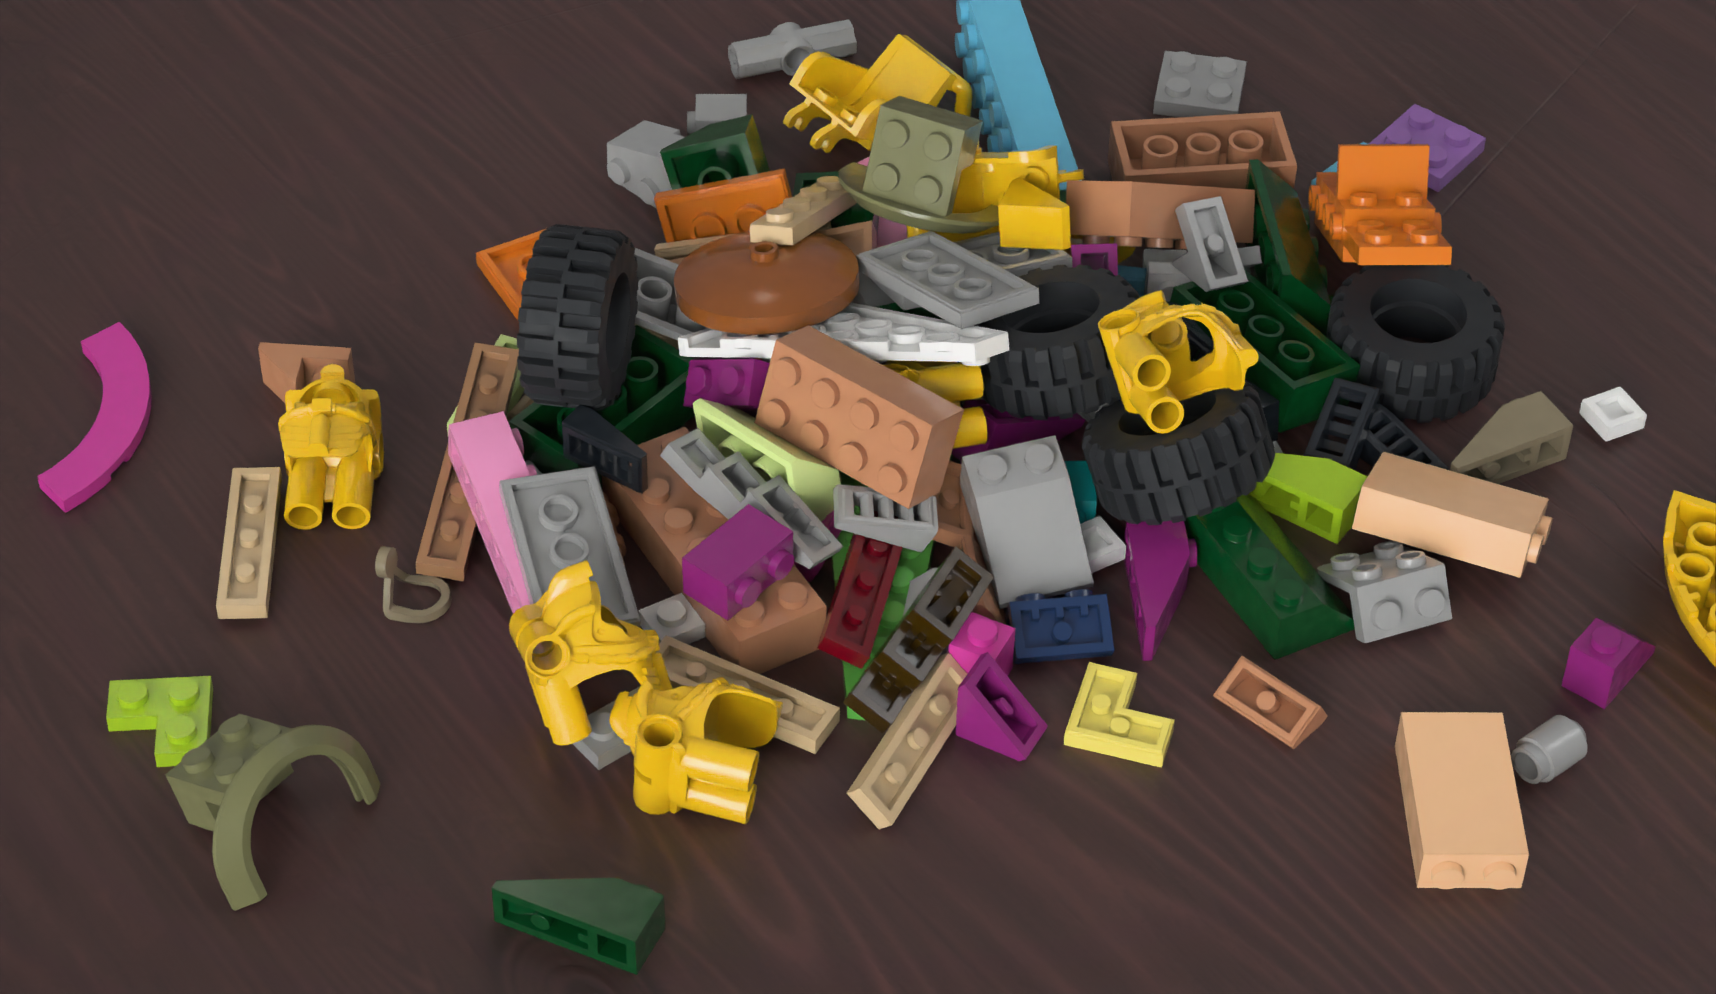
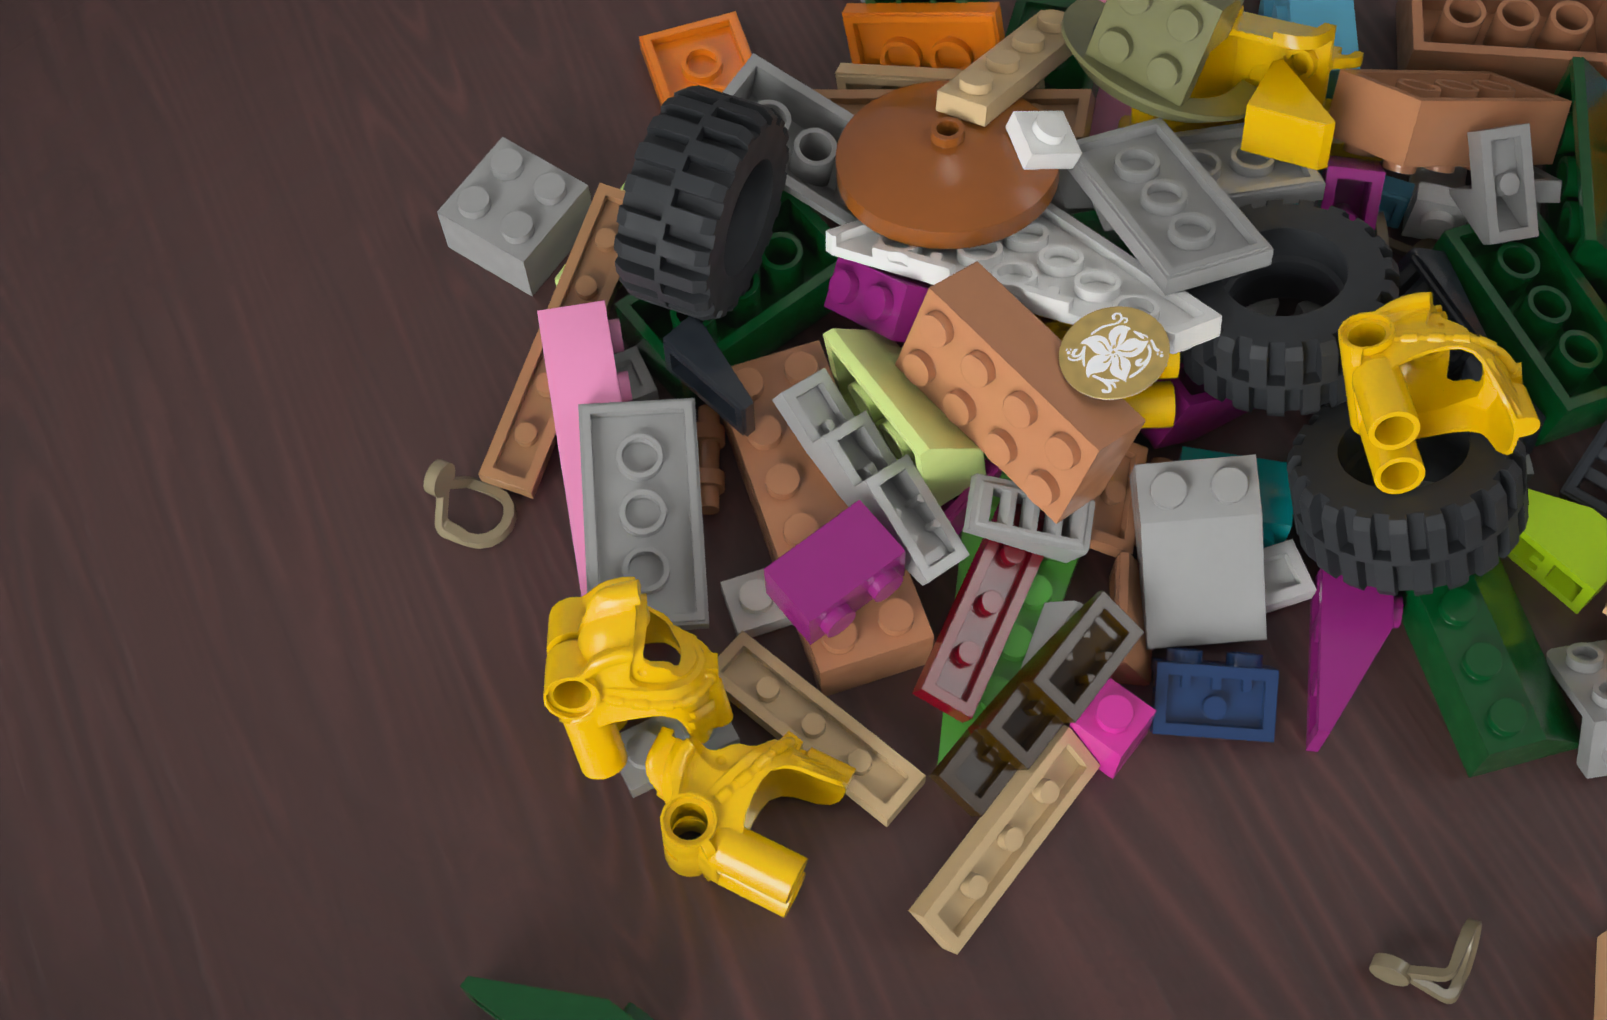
camera: 15 degrees right, 20 degrees up
(118, 424) = (201, 214): dark pink tile -> none
(173, 706) = (176, 628): lime plate -> none
(240, 766) = (207, 759): olive piece -> none
(249, 543) = (302, 411): tan plate -> none
(296, 366) = (409, 175): nougat slope -> none
(331, 450) = (409, 310): yellow helmet -> none
(415, 381) = (515, 215): none -> light grey brick
(842, 248) = (1043, 140): none -> white plate
(929, 363) = (1114, 353): none -> pearl gold sticker
(996, 712) = (1116, 817): magenta slope -> none
(1107, 726) = (1244, 849): light yellow tile -> none
(1241, 782) = (1400, 973): none -> dark tan piece
(1270, 703) = (1452, 850): nougat slope -> none

